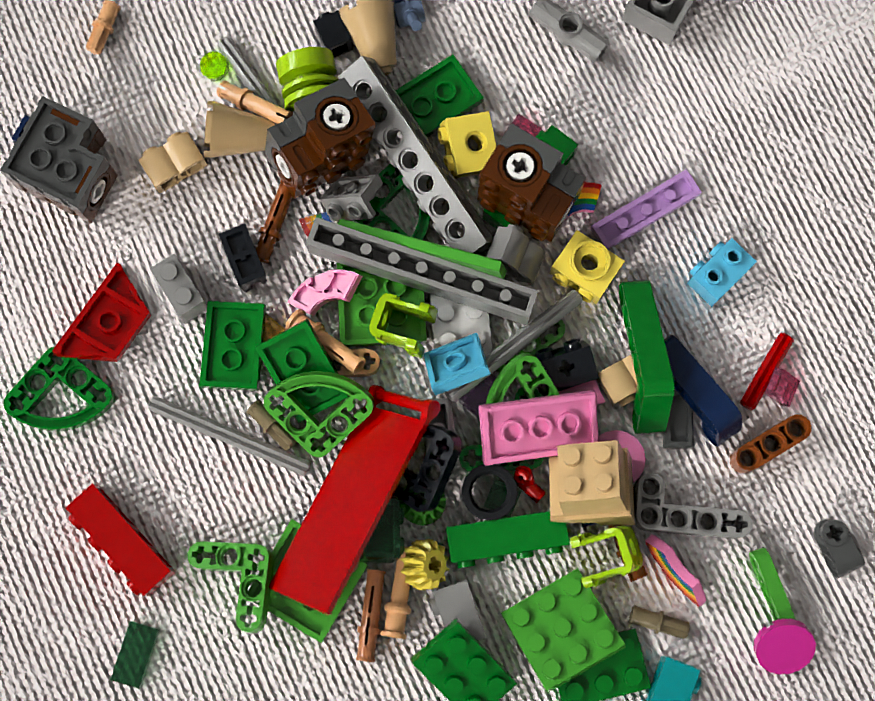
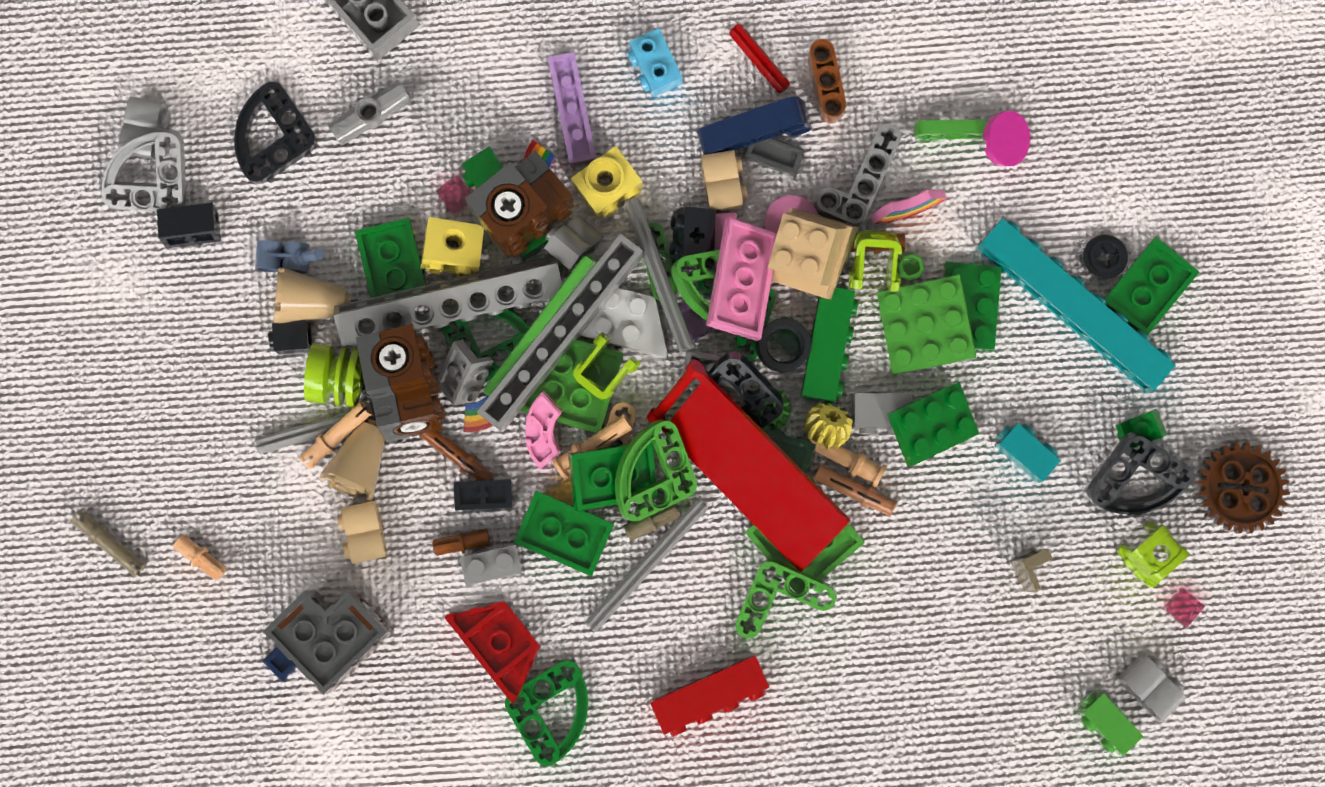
camera: 70 degrees left, 5 degrees up
(135, 654) = (816, 714): clear green tile -> none
(193, 254) = (461, 542): none -> dark orange axle
(214, 66) = (280, 462): clear neon green tile -> none
(456, 364) = (659, 332): medium azure tile -> none
(525, 481) = (783, 309): red arm -> none
(615, 593) = (910, 267): none -> bright green tile
(649, 357) = (710, 156): green beam -> none
(659, 622) = (947, 239): dark tan axle -> none
(782, 387) = (779, 50): clear pink tile -> none
(839, 551) = (942, 59): dark grey piece -> none

